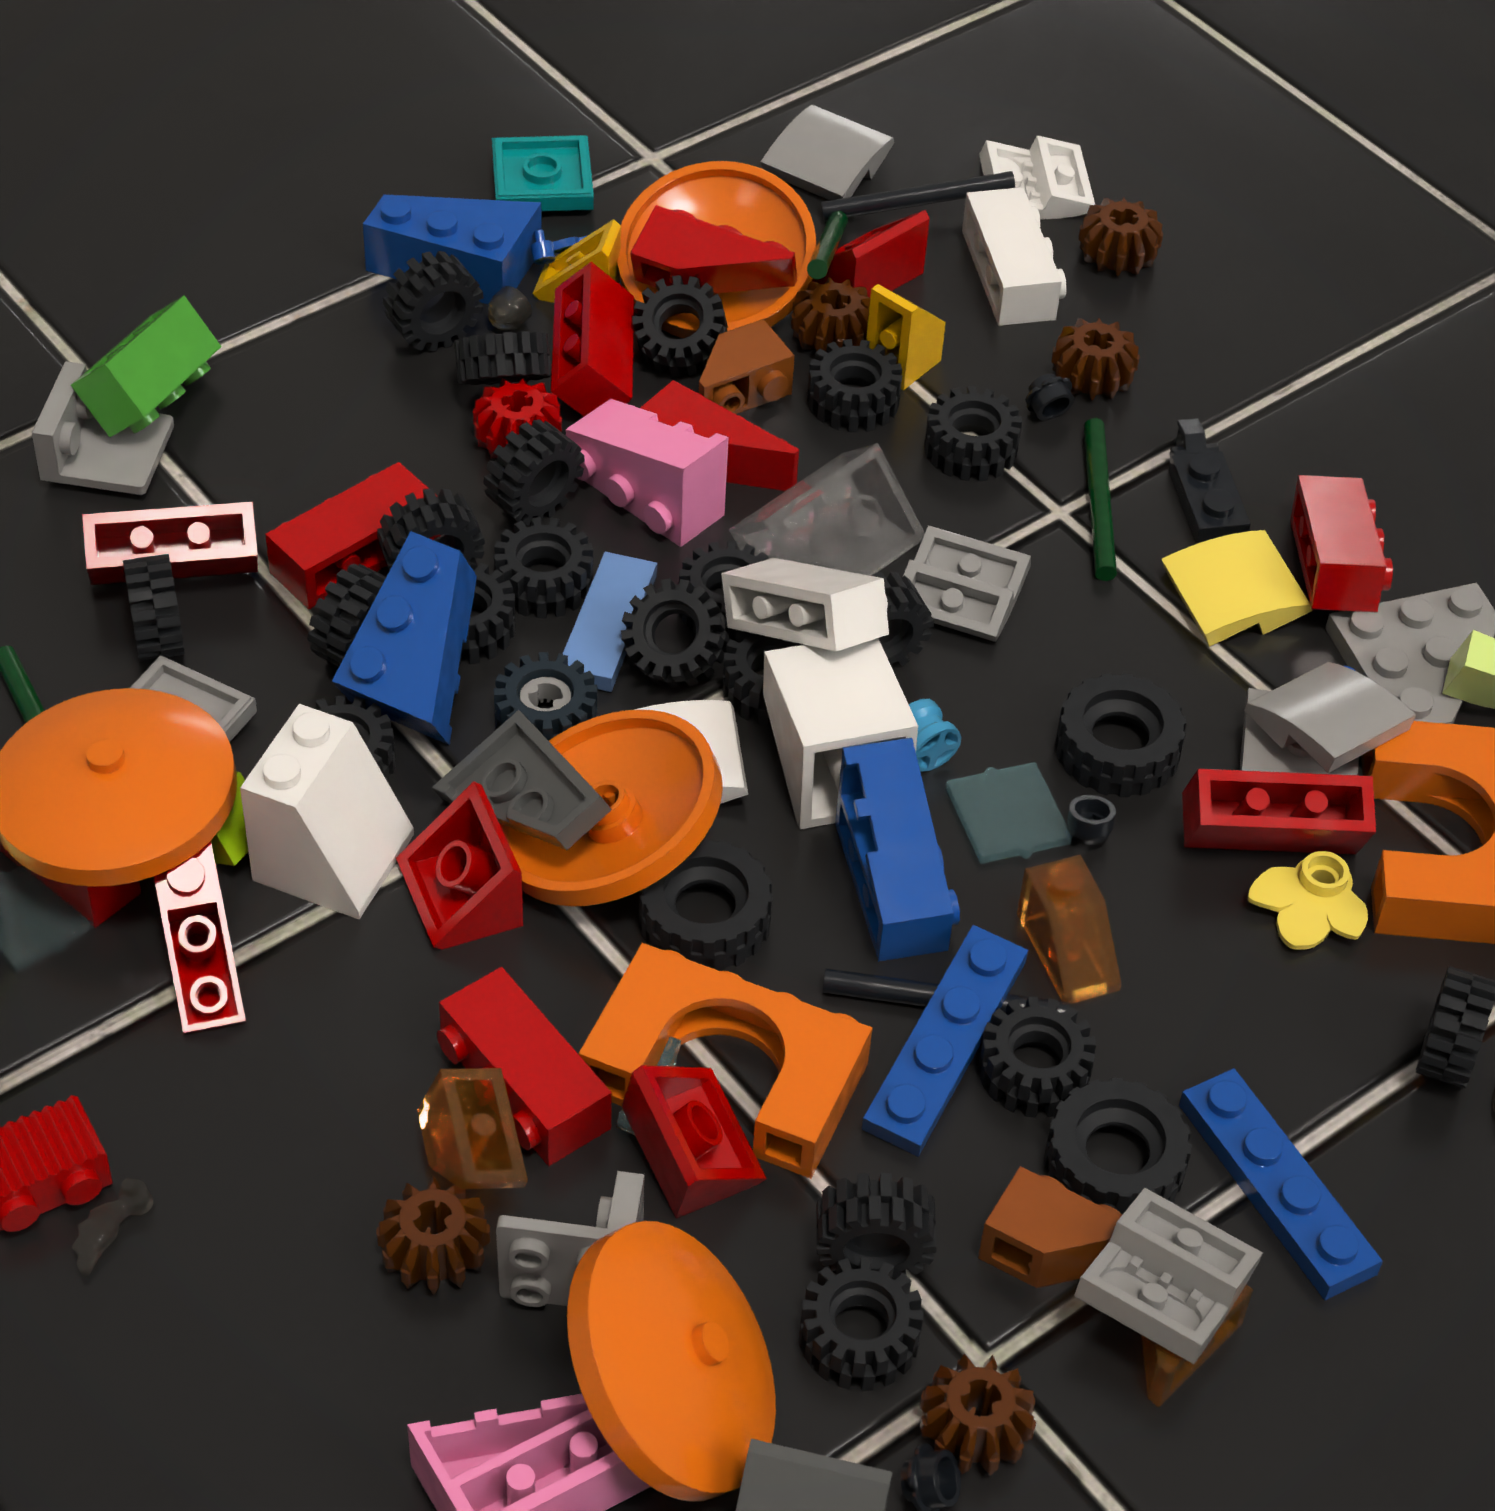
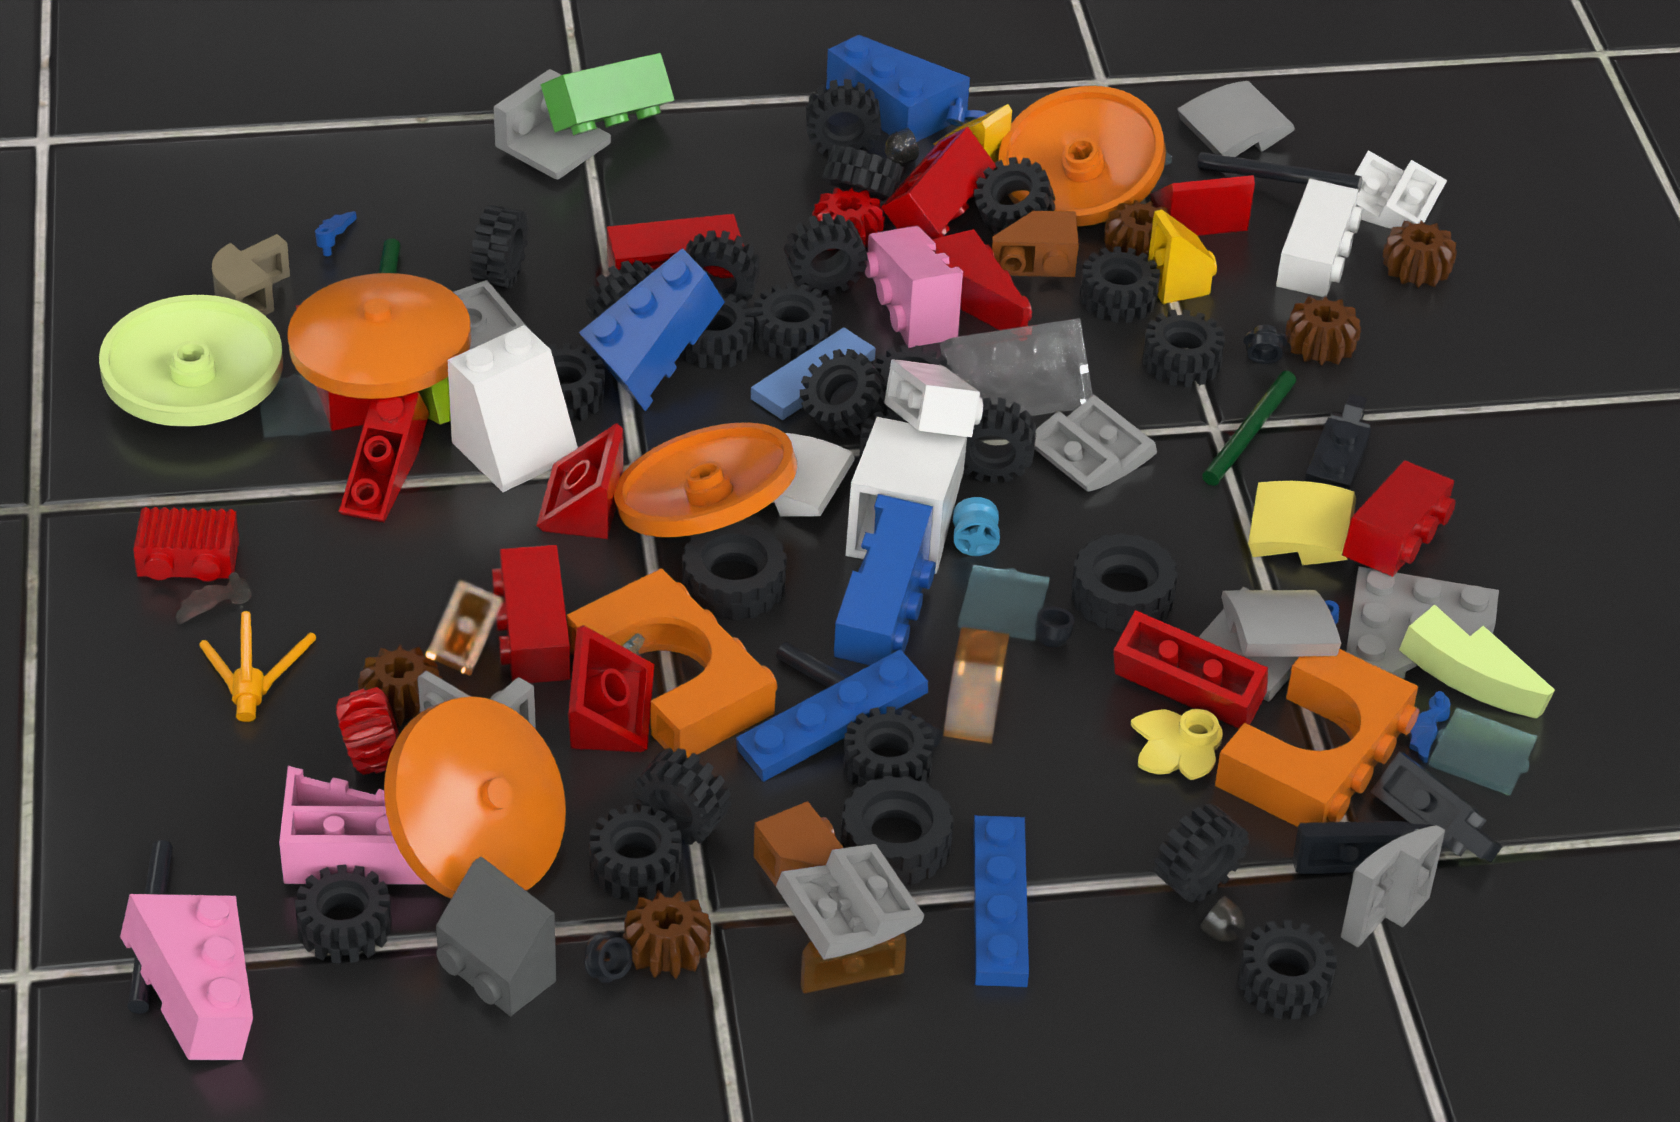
camera: 30 degrees right, 5 degrees down
(197, 538) = (552, 211): brick -> none
(244, 1321) = (249, 683): none -> light orange plant
(453, 1319) = (367, 729): none -> red gear
(528, 784) = (663, 444): dark grey wing -> none
(544, 171) = (1003, 62): teal plate -> none
(568, 687) = (707, 395): black bush -> none
(716, 255) = (1064, 154): red slope -> none
(827, 245) = (1166, 177): dark green bar -> none

